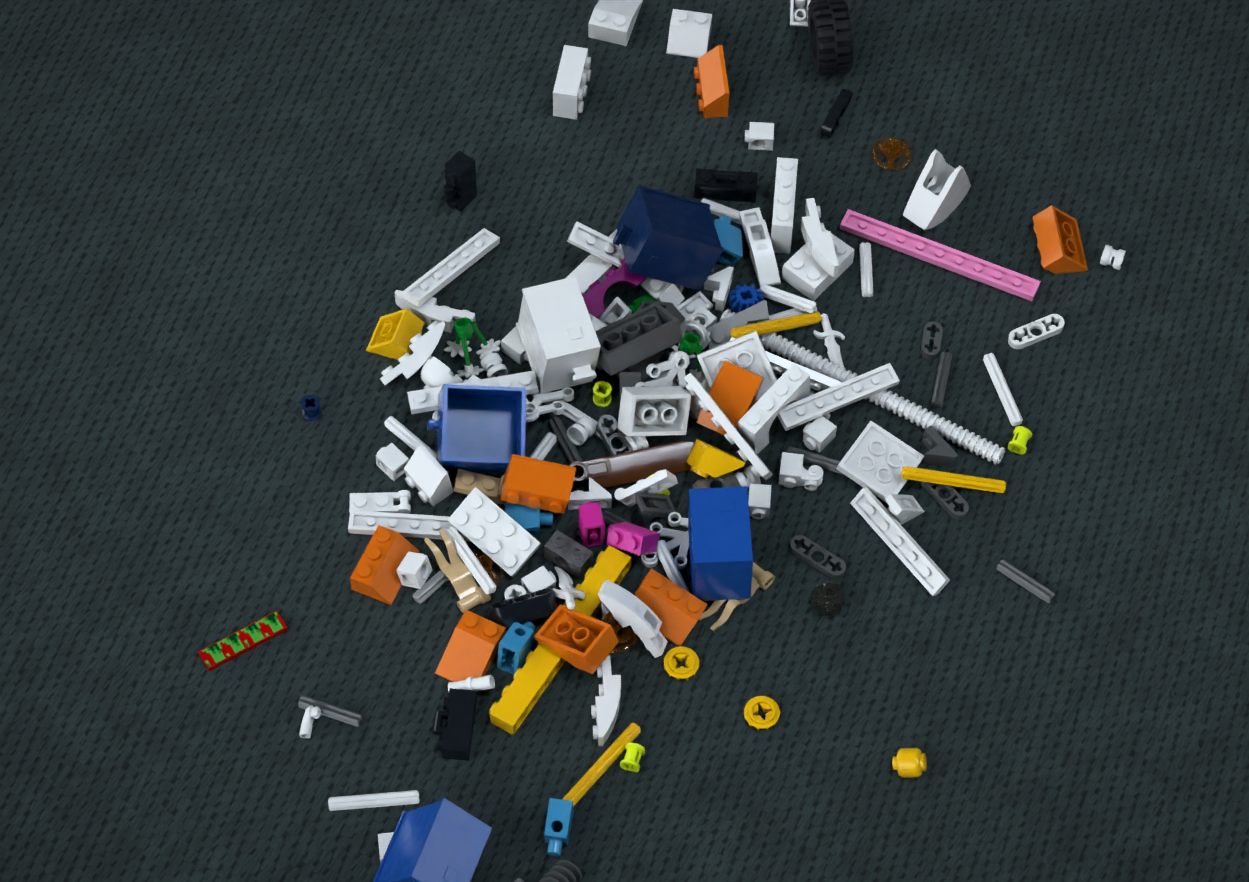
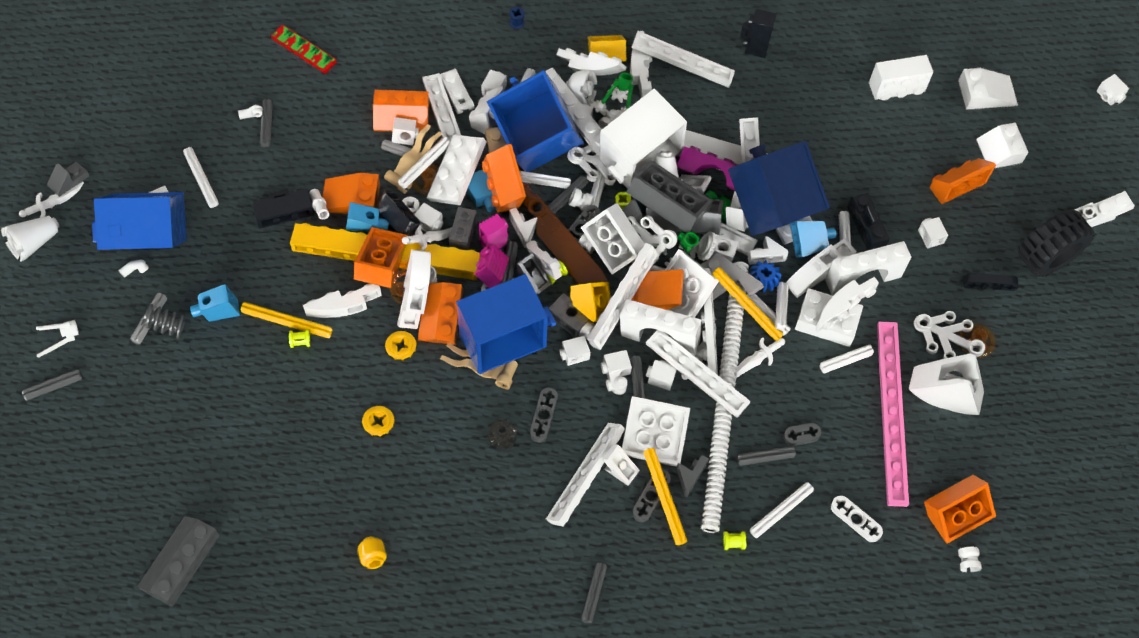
camera: 65 degrees right, 5 degrees up
(878, 175) = (947, 334): none -> white plant

